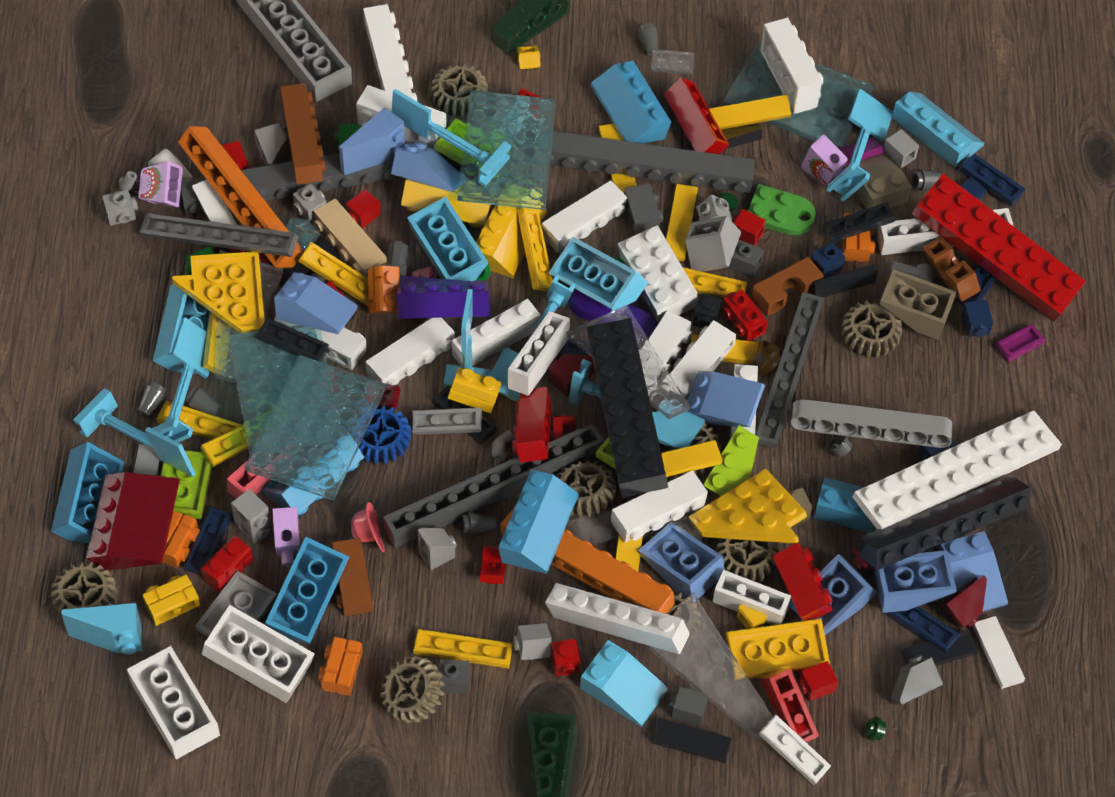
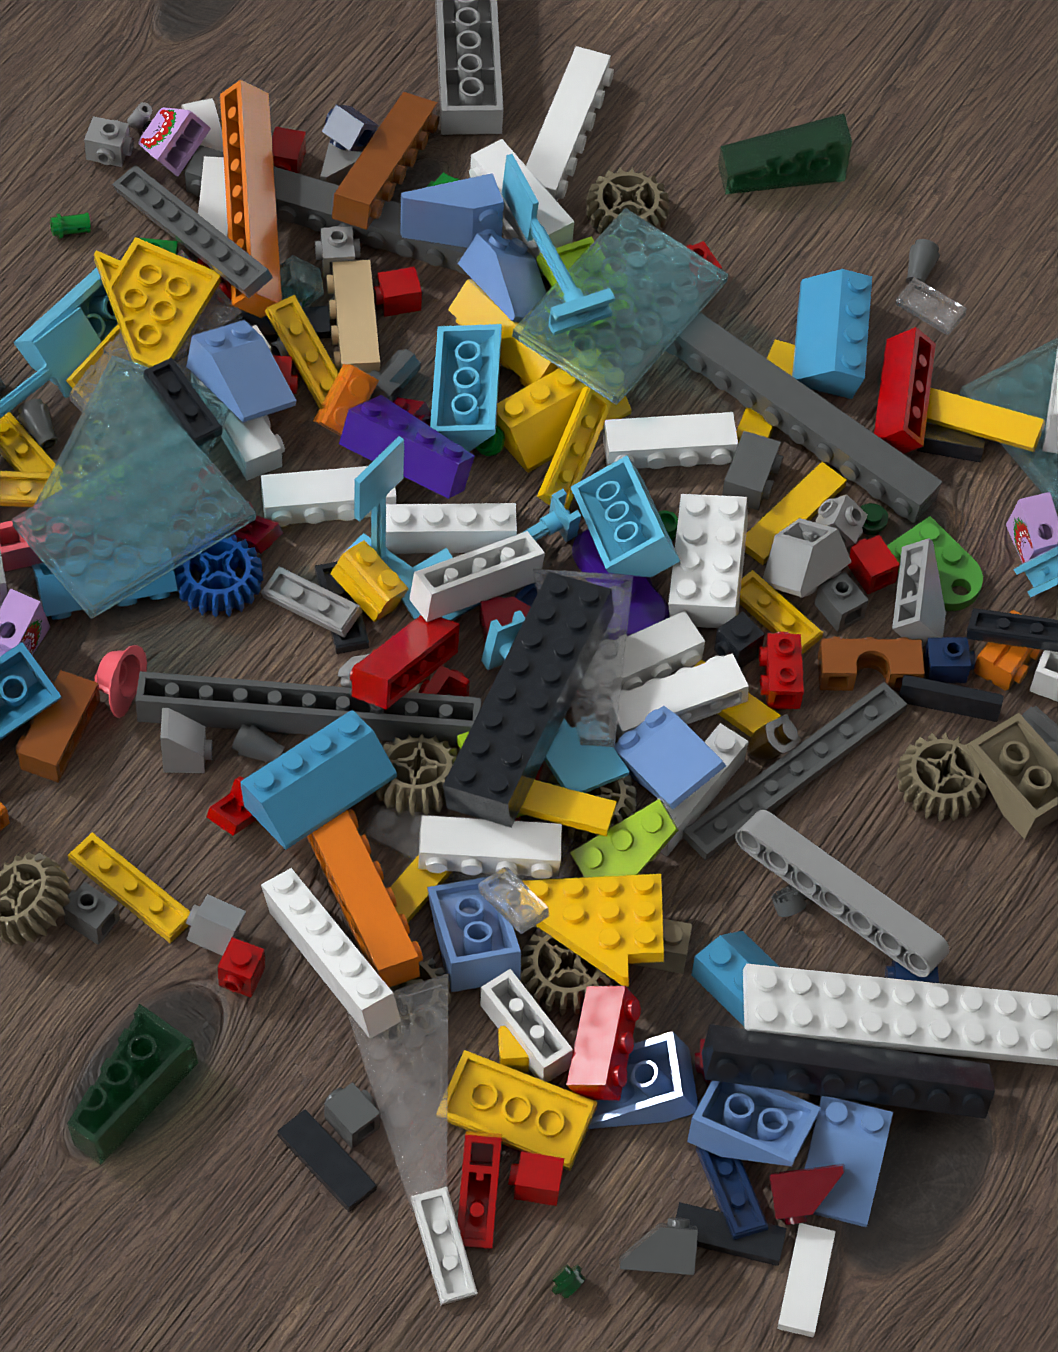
camera: 30 degrees right, 0 degrees up
(130, 271) = (70, 224): none -> green pin
(268, 124) = (348, 128): none -> brick
(528, 57) = (749, 209): yellow slope -> none
(622, 683) = (290, 1040): medium azure slope -> none
(697, 529) = (513, 900): none -> clear plate
(787, 230) = (919, 596): none -> light grey slope

